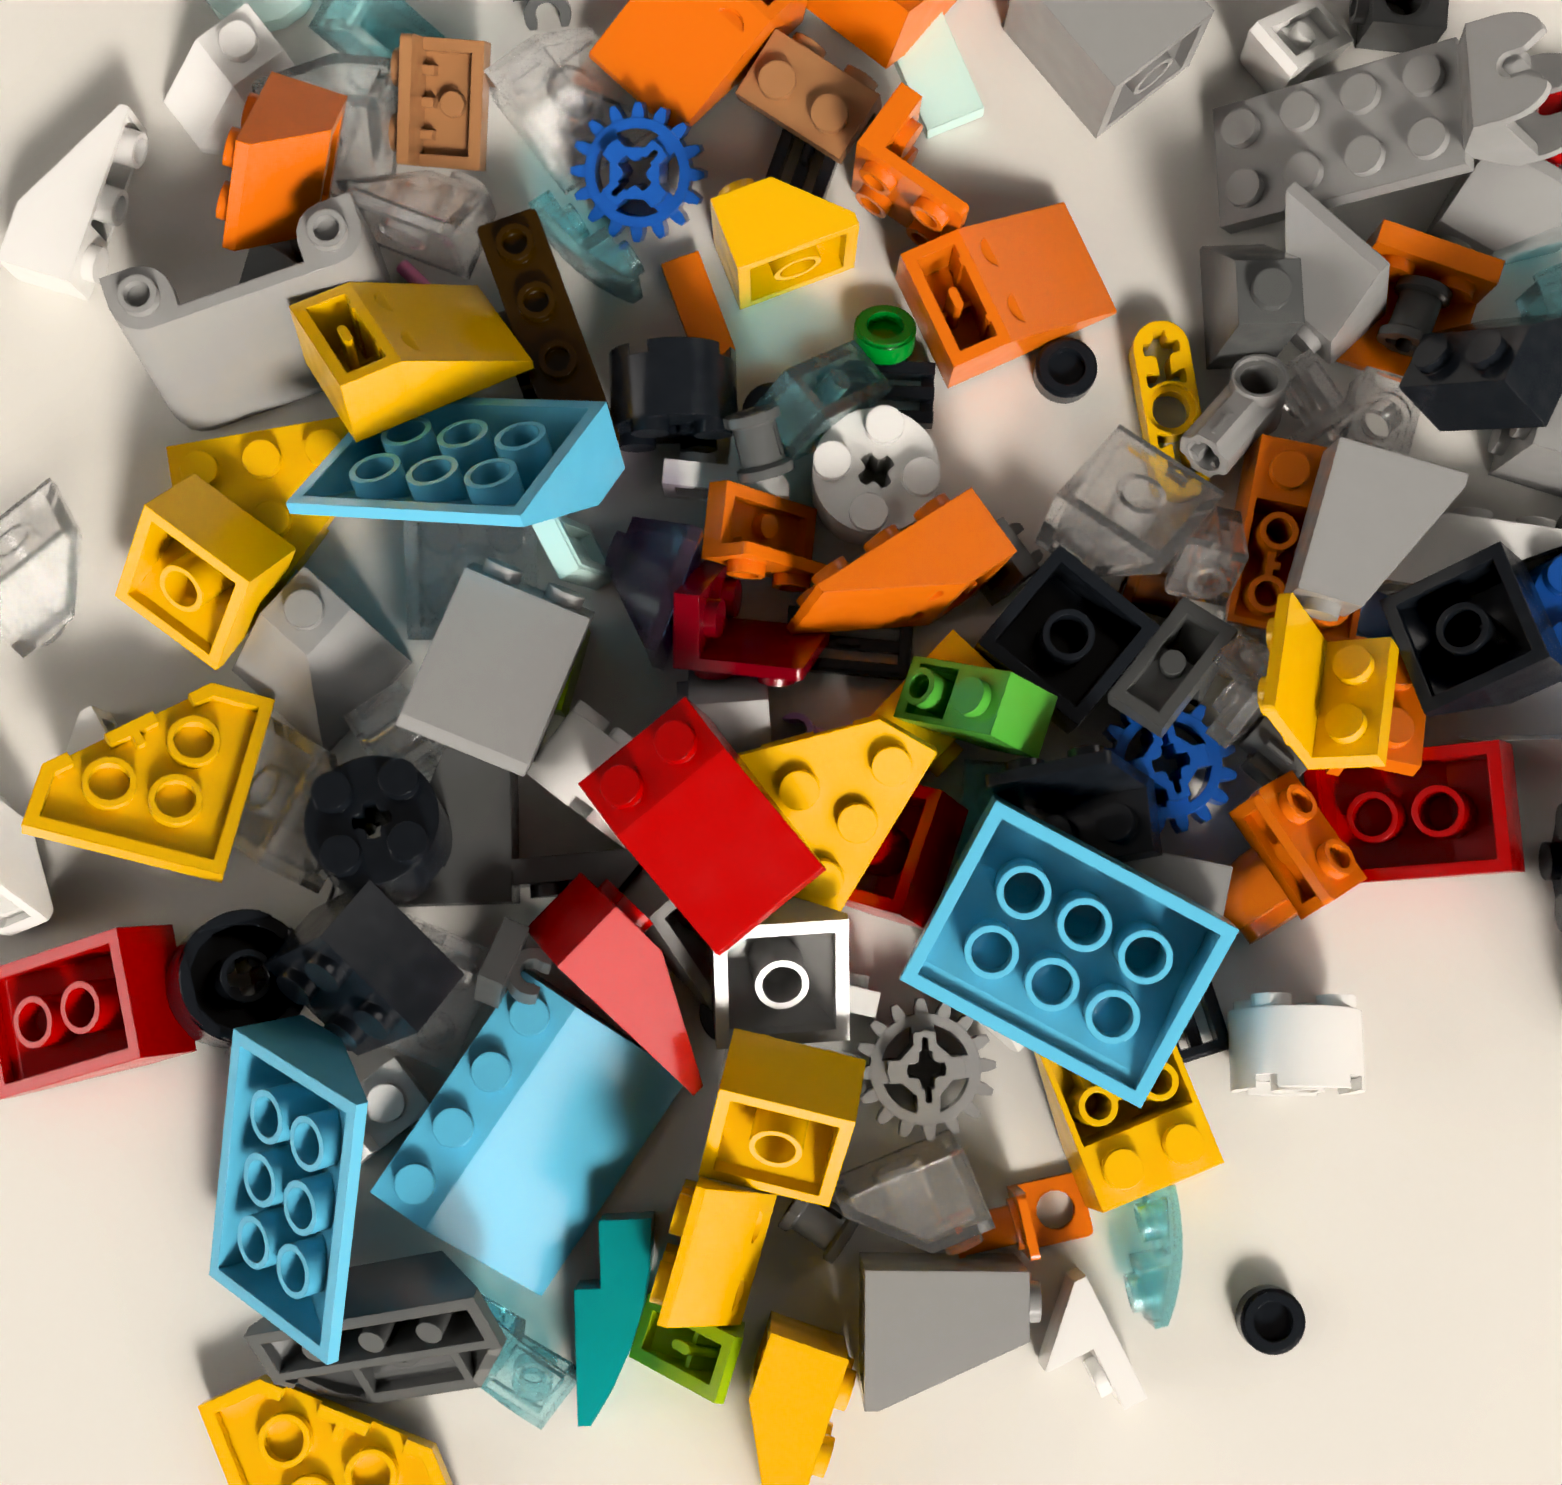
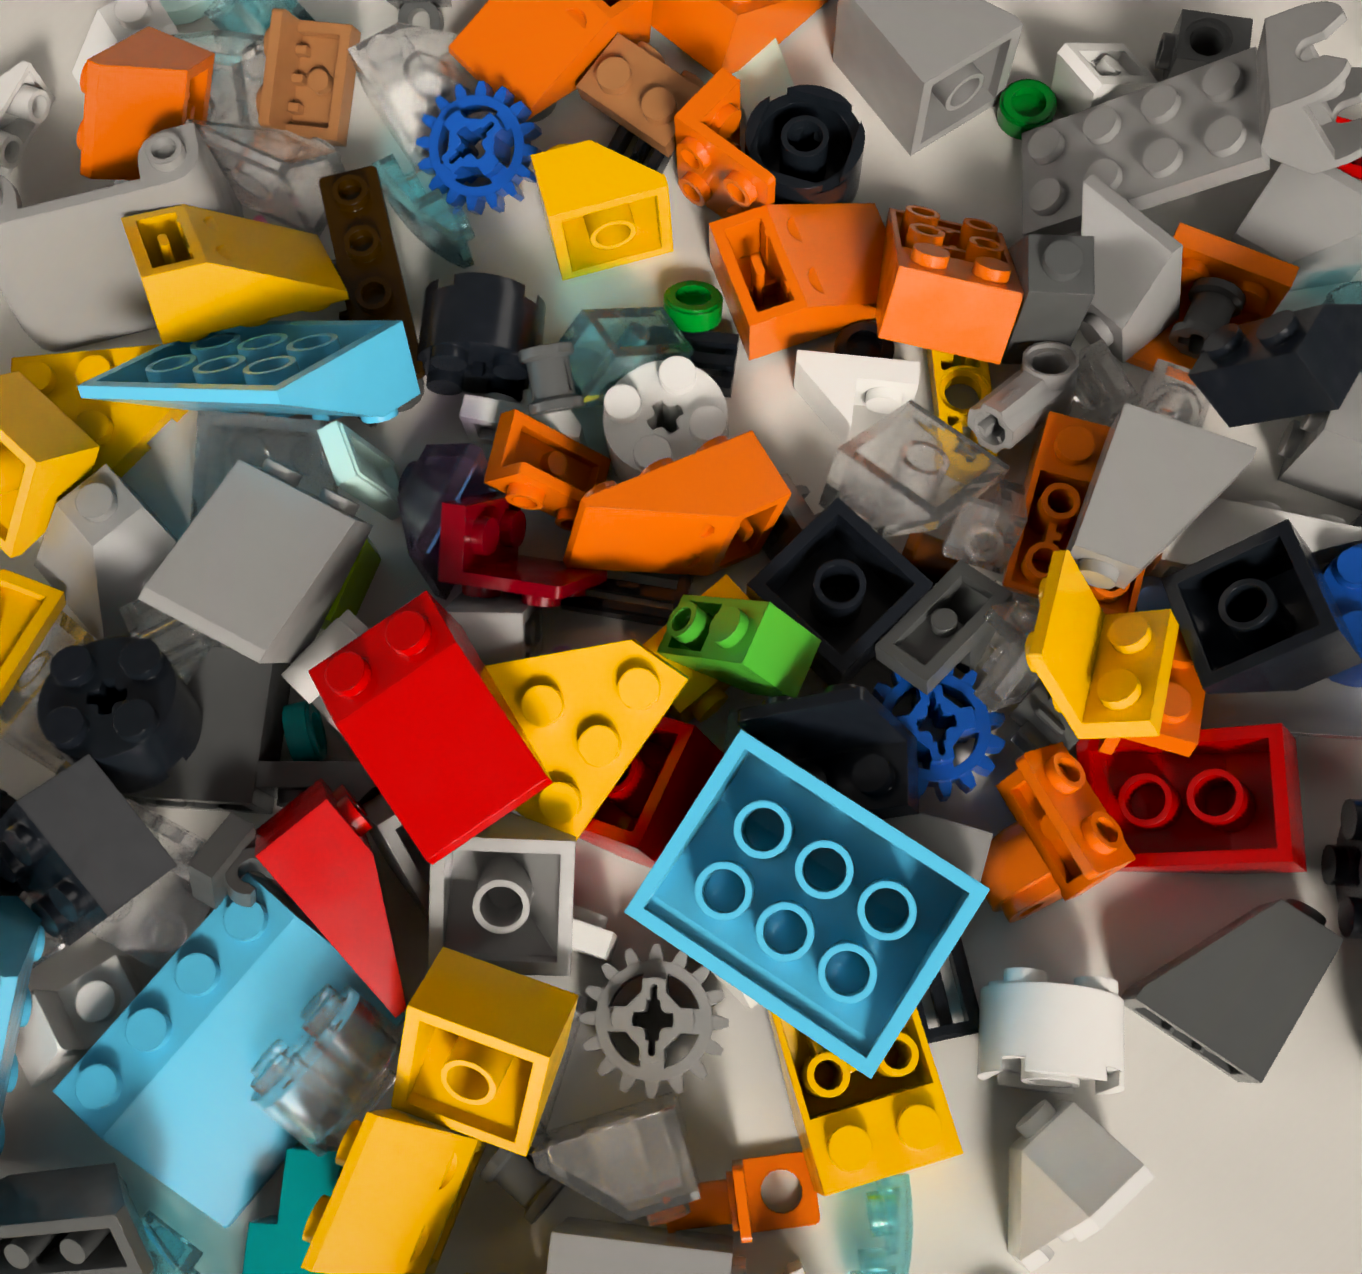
camera: 15 degrees right, 10 degrees down
(547, 823) = (304, 732): none -> teal tile
(632, 1145) = (329, 1068): none -> clear brick
(696, 300) = (520, 262): orange piece -> none
(997, 126) = (808, 145): none -> black brick
(1043, 411) = (839, 381): none -> white slope
(1148, 298) = (947, 285): none -> orange slope
(1215, 77) = (1025, 107): none -> green tile
(1314, 1175) = (1065, 1180): none -> white slope
(1466, 983) = (1241, 987): none -> dark grey slope

